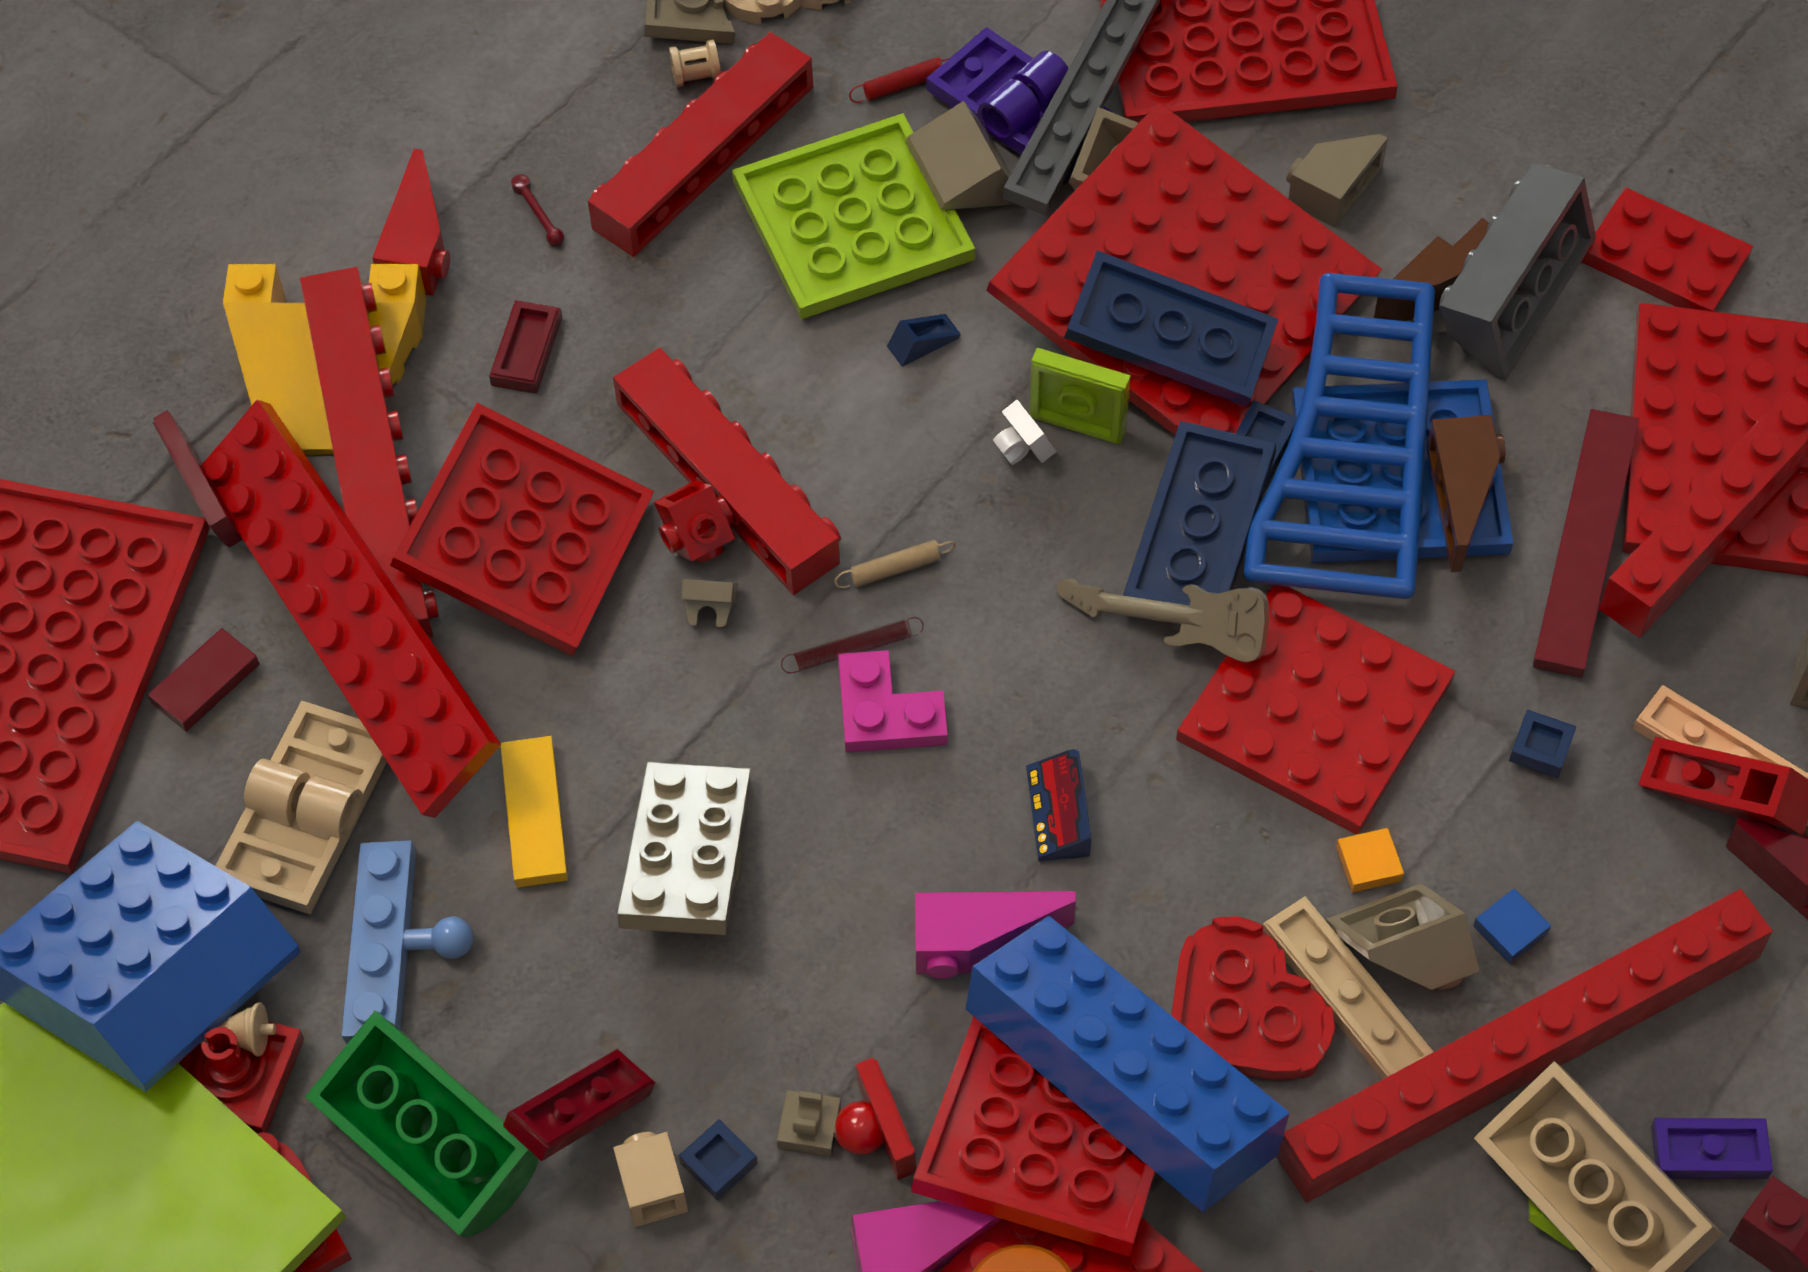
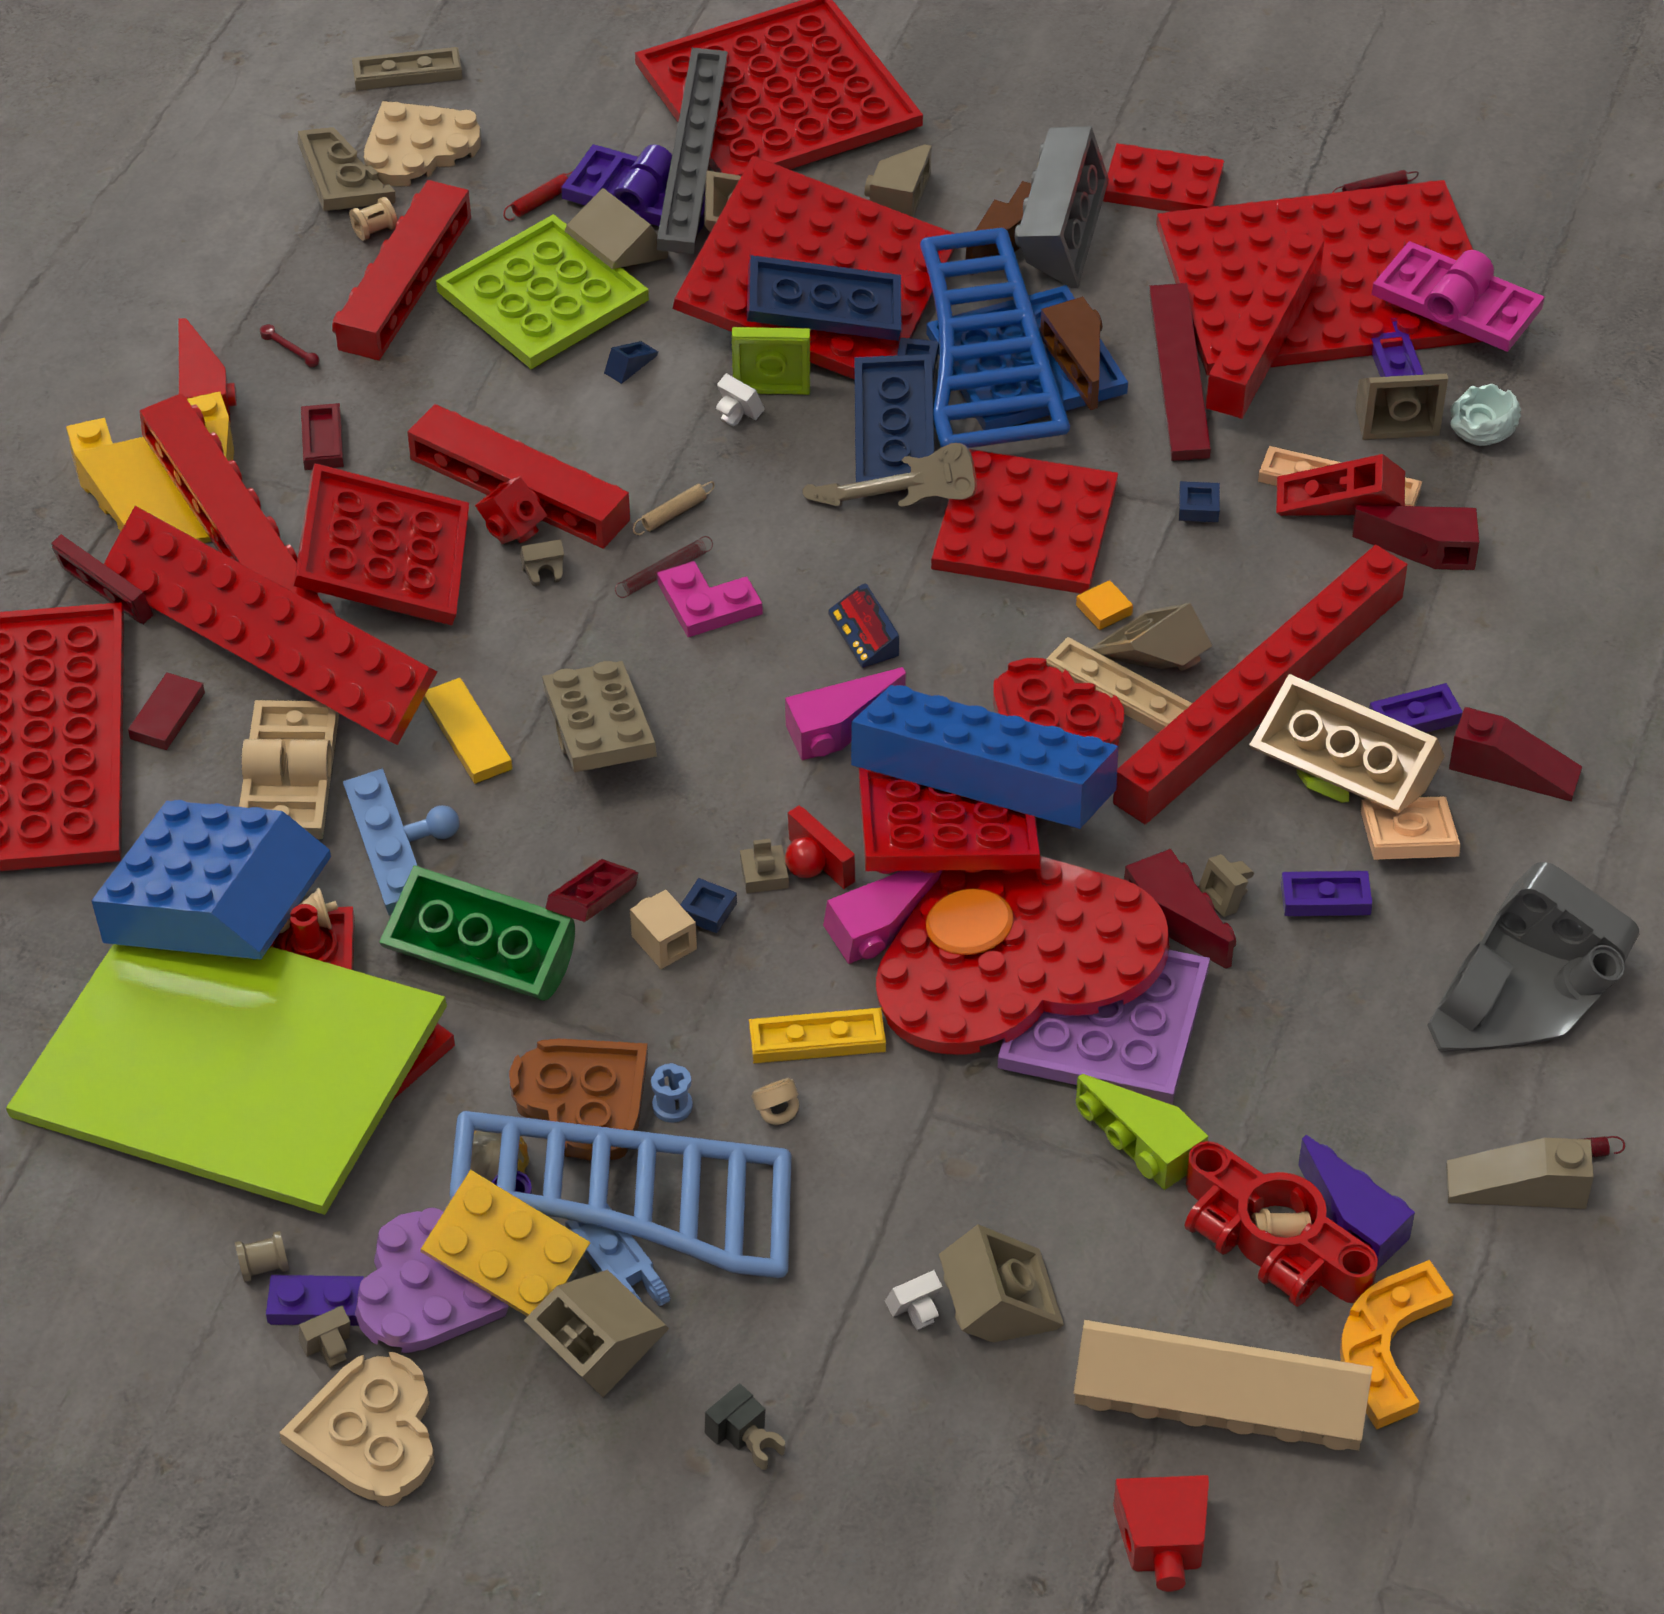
camera: 20 degrees left, 10 degrees down
(1512, 925) = (1223, 618): blue tile -> none

